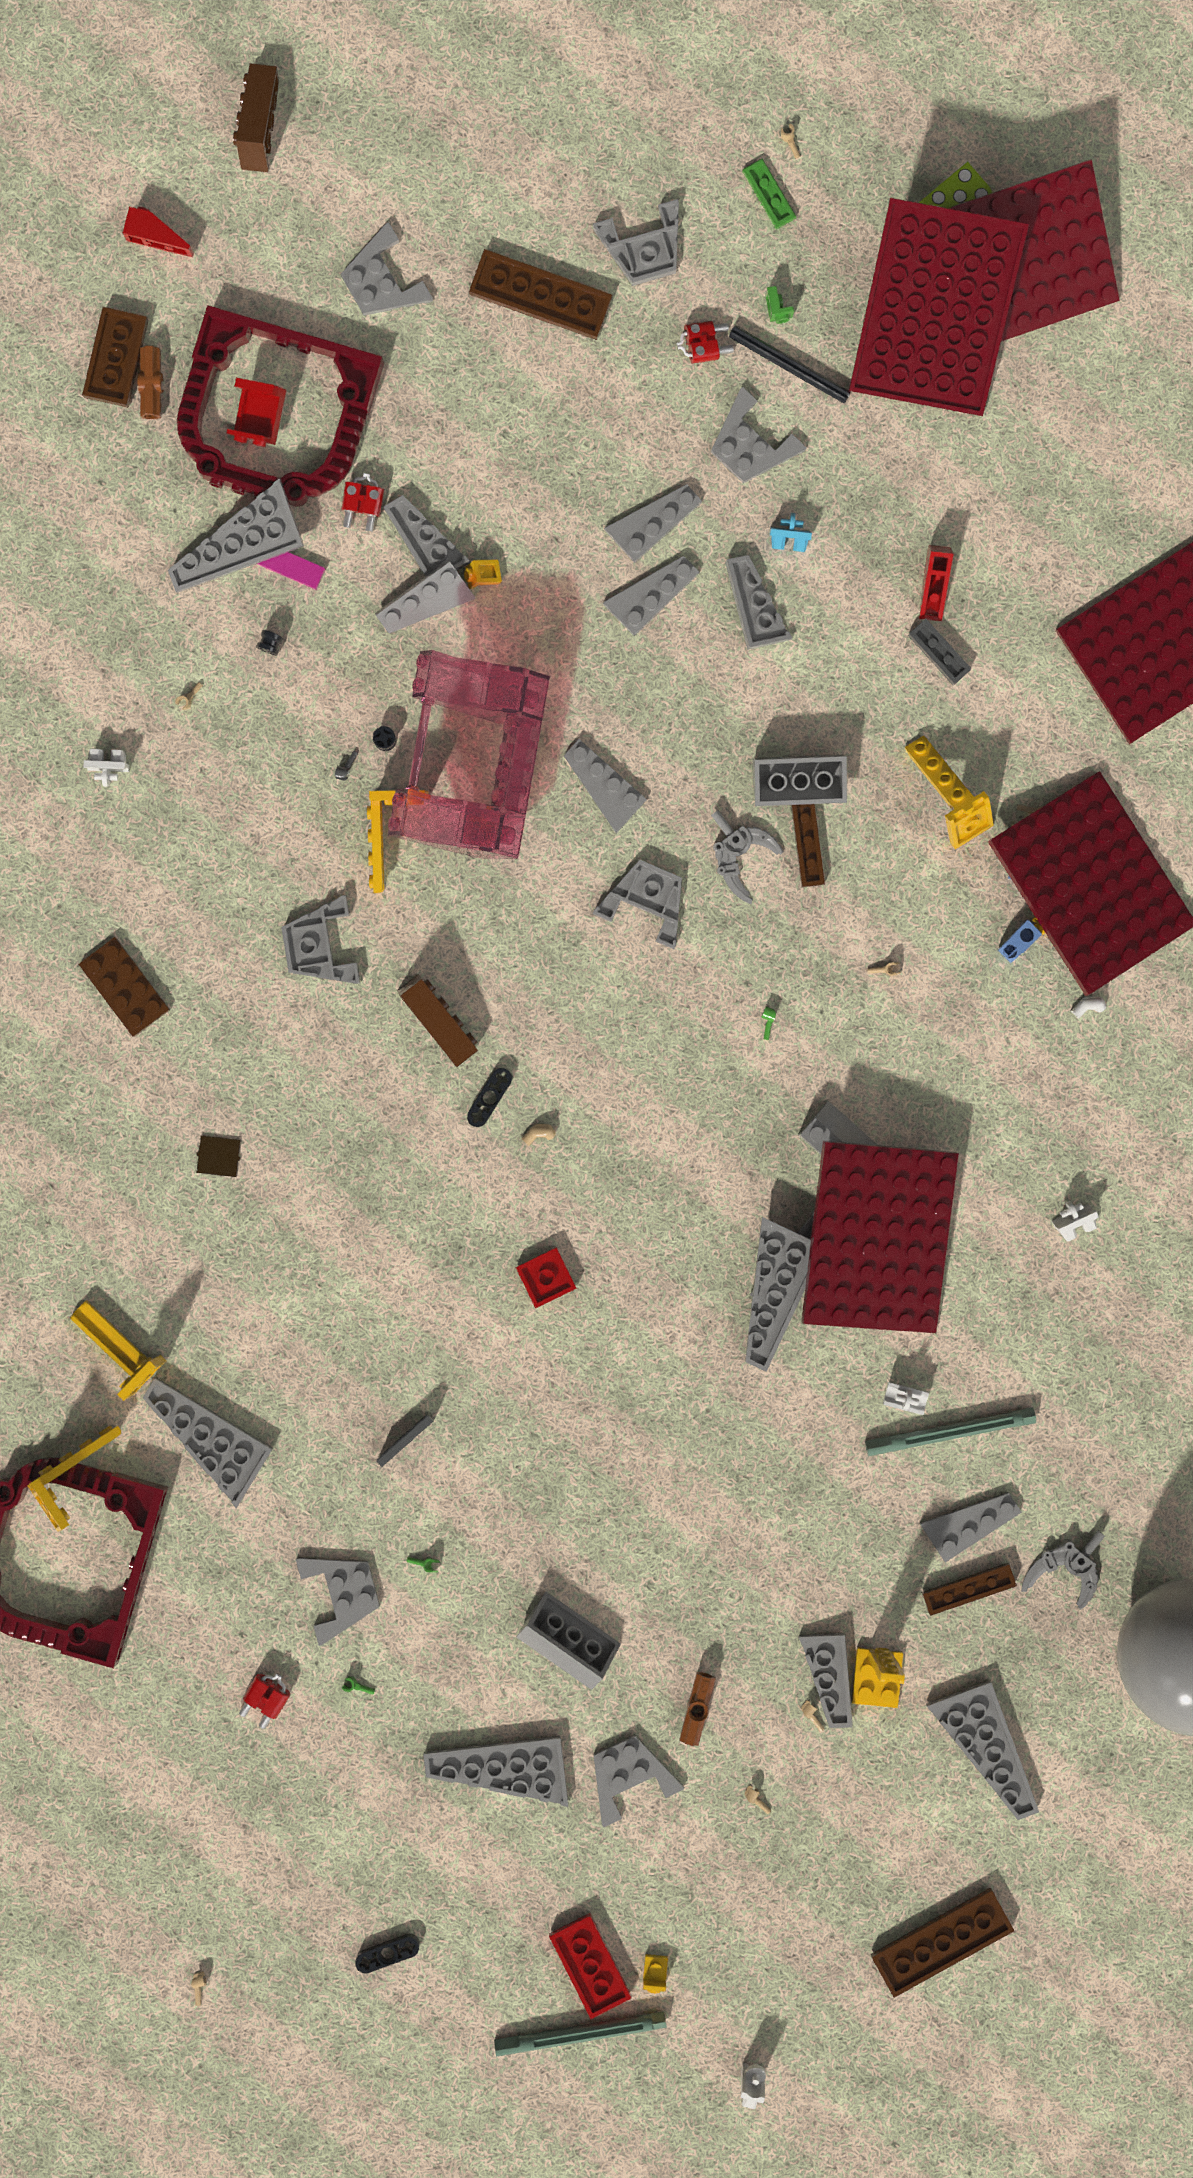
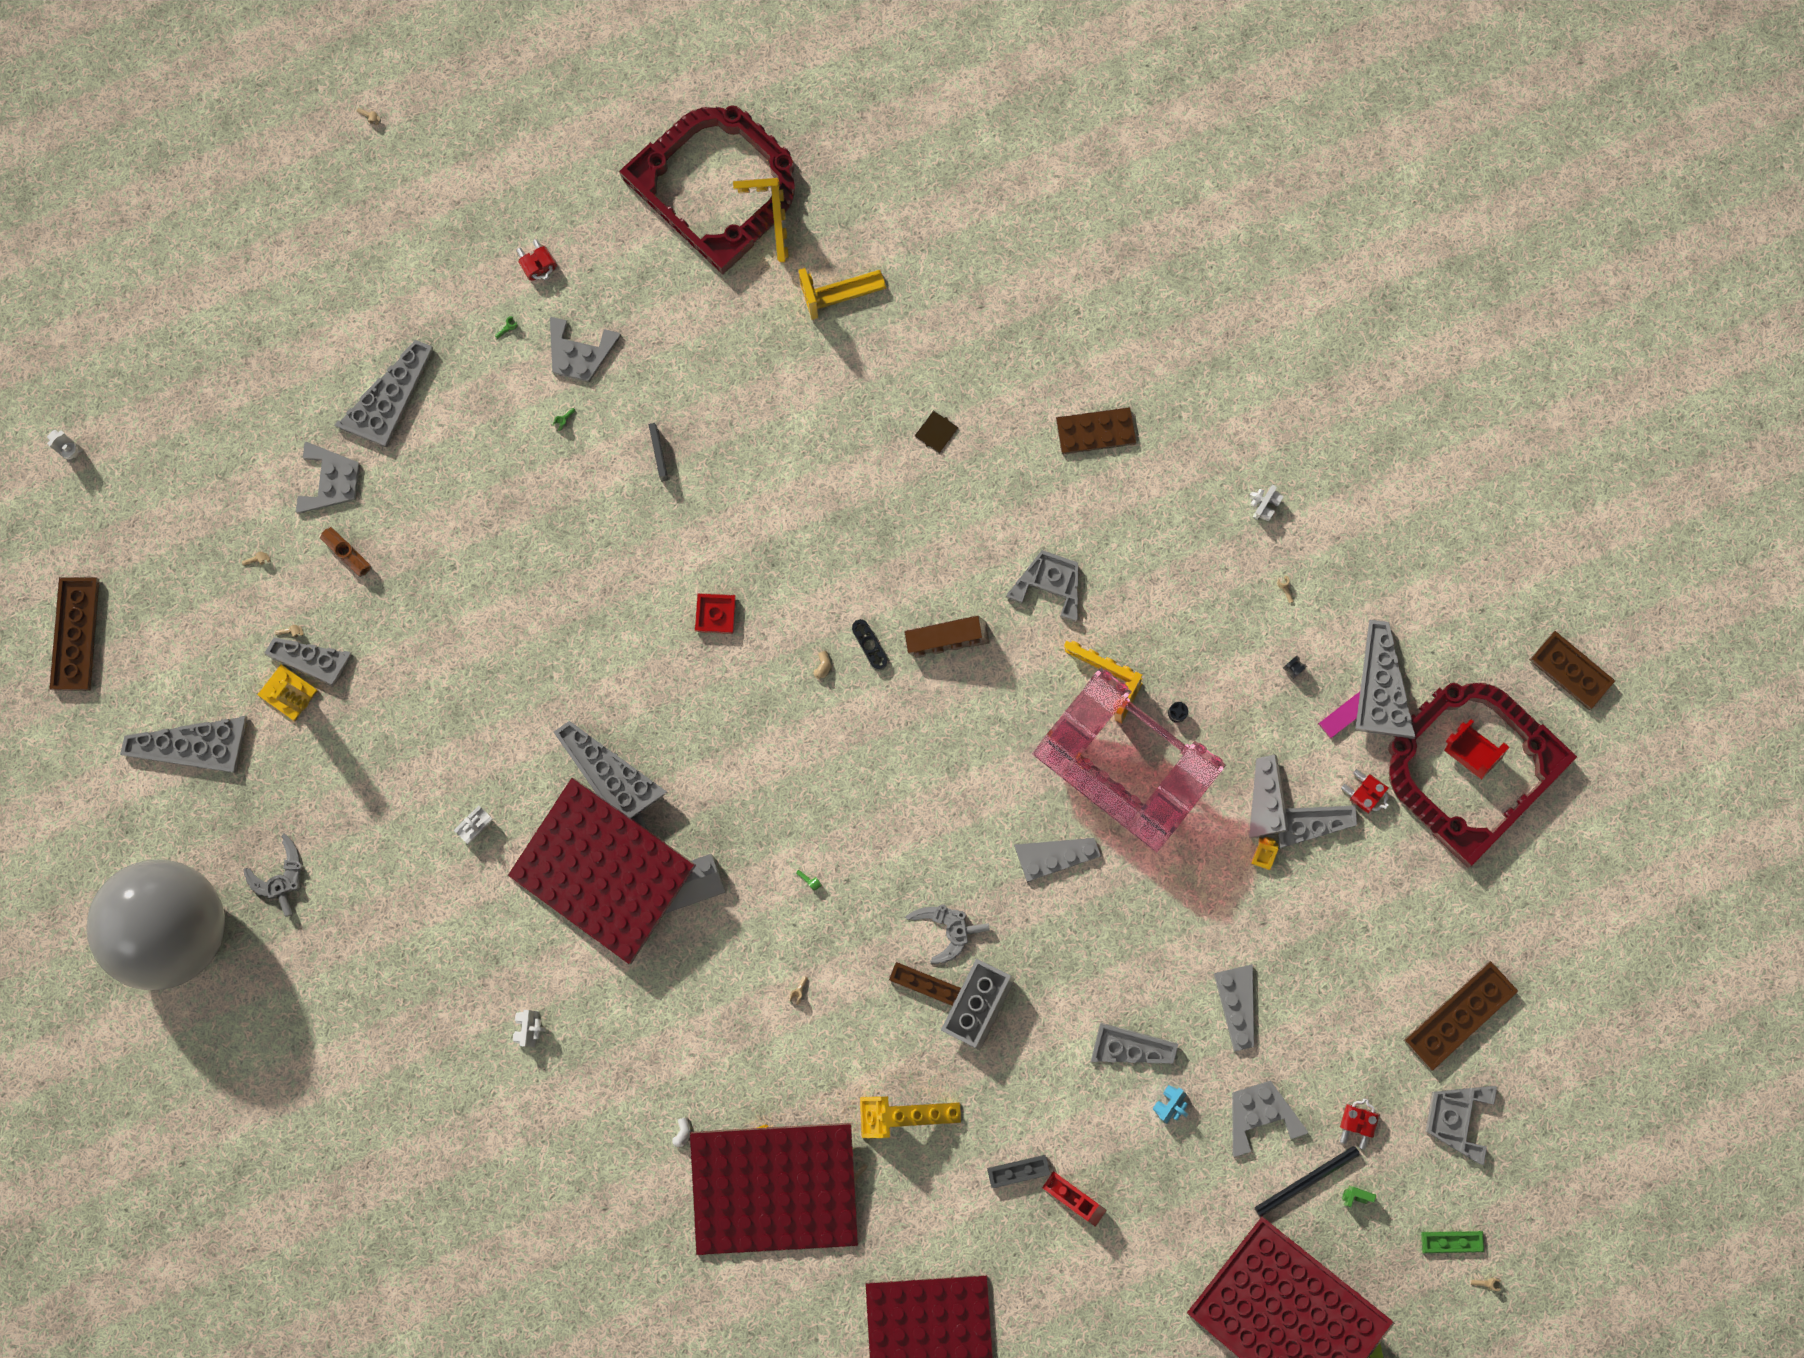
camera: 125 degrees right, 10 degrees down
(148, 230) = (1660, 744): red slope -> none
(149, 382) = (1539, 685): dark orange piece -> none
(215, 1443) = (733, 321): light grey wing -> none
(256, 117) = (1708, 873): reddish brown wedge -> none
(342, 772) = (1170, 667): dark grey hand -> none
(369, 1953) = (307, 245): black beam -> none
(373, 283) = (1535, 892): light grey wing -> none
(569, 1641) = (448, 488): light grey slope -> none
(579, 2033) = (175, 349): sand green piece -> none
(590, 1965) = (216, 381): red plate -> none
(646, 598) = (1181, 969): light grey wing -> none
(650, 891) = (954, 847): light grey wing -> none
(655, 1973) = (182, 422): yellow bracket -> none
(949, 1432) = (429, 845): sand green piece -> none
(964, 1527) = (354, 821): light grey wing -> none
(969, 1589) = (308, 794): reddish brown plate -> none
(1019, 941) = (761, 1106): medium blue leg -> none

